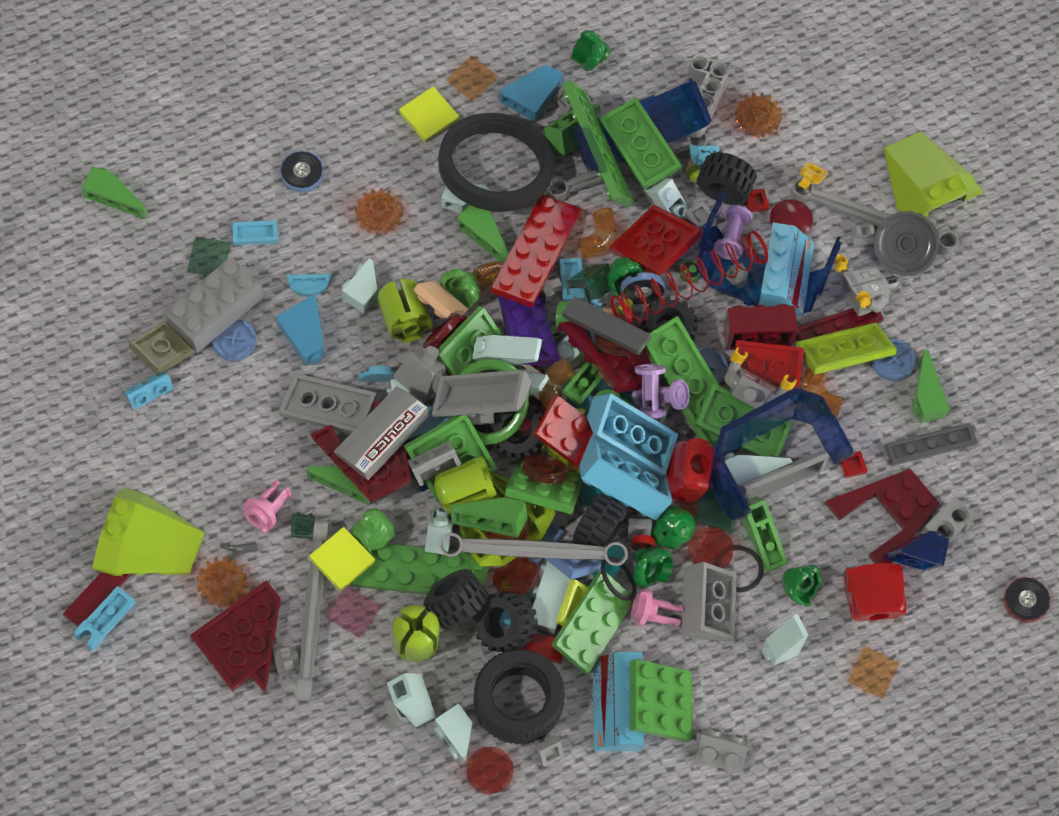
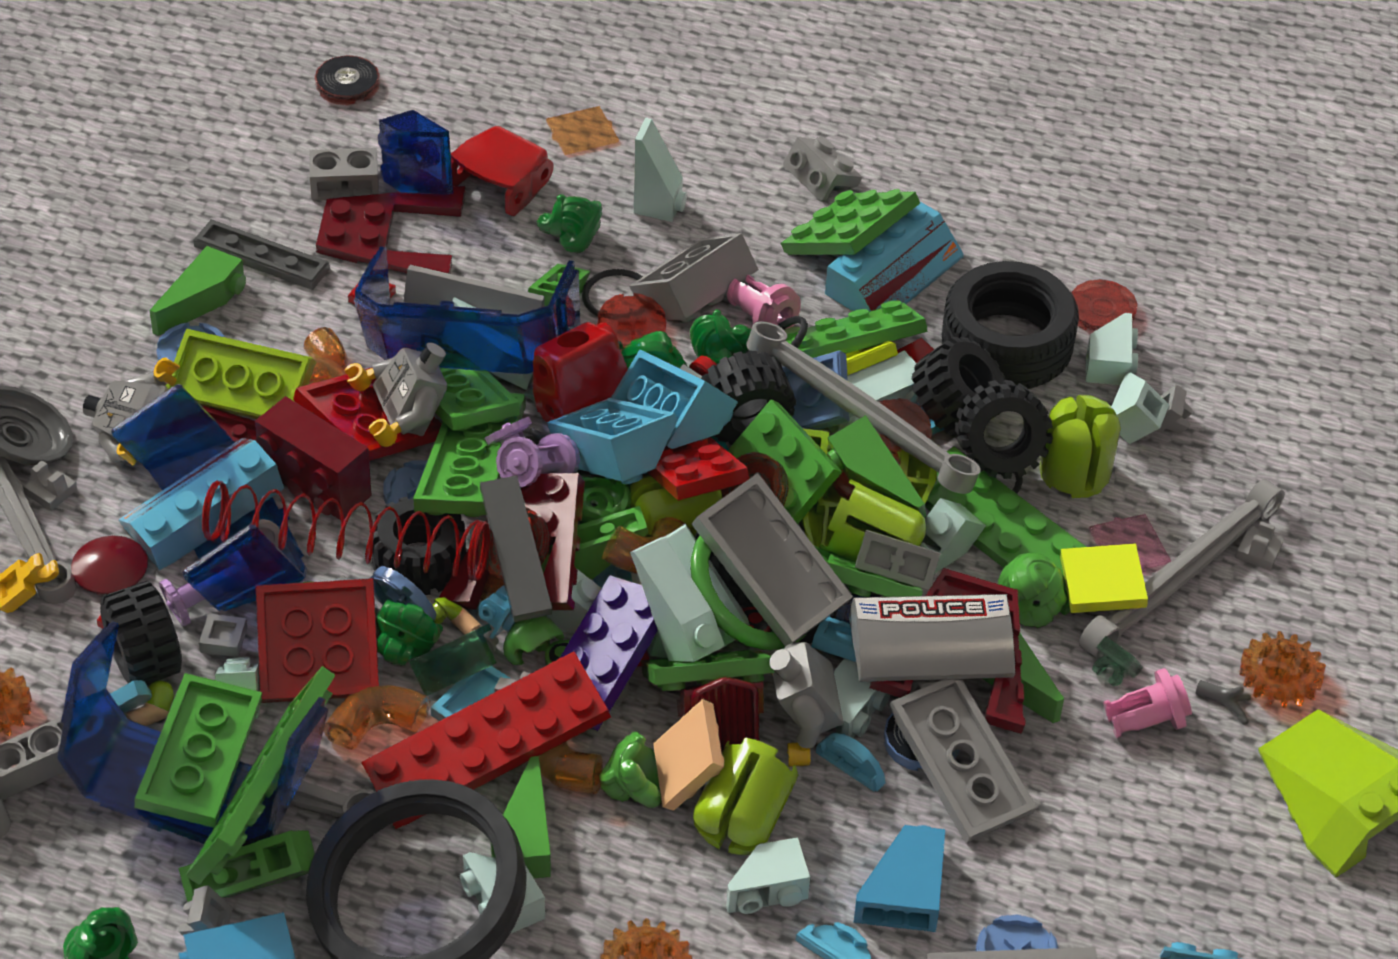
camera: 135 degrees left, 20 degrees down
(242, 638) = (1301, 594): dark red wing -> none

